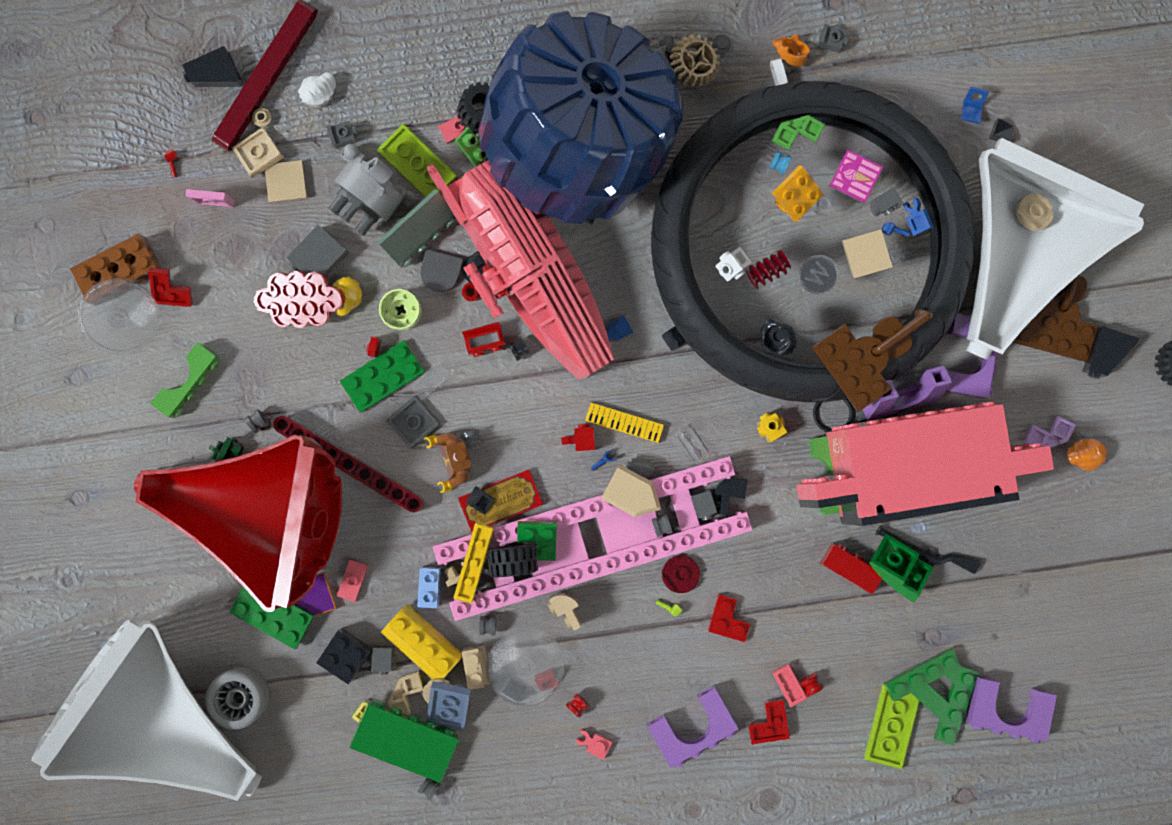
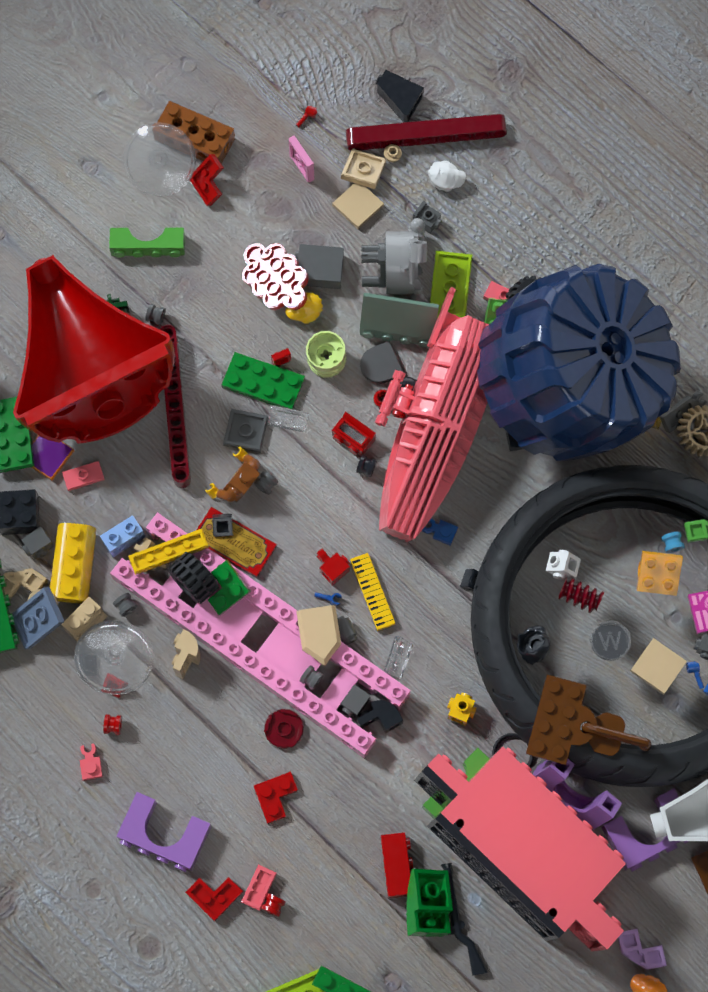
camera: 50 degrees right, 15 degrees down
(675, 610) = (249, 746): lime hand -> none

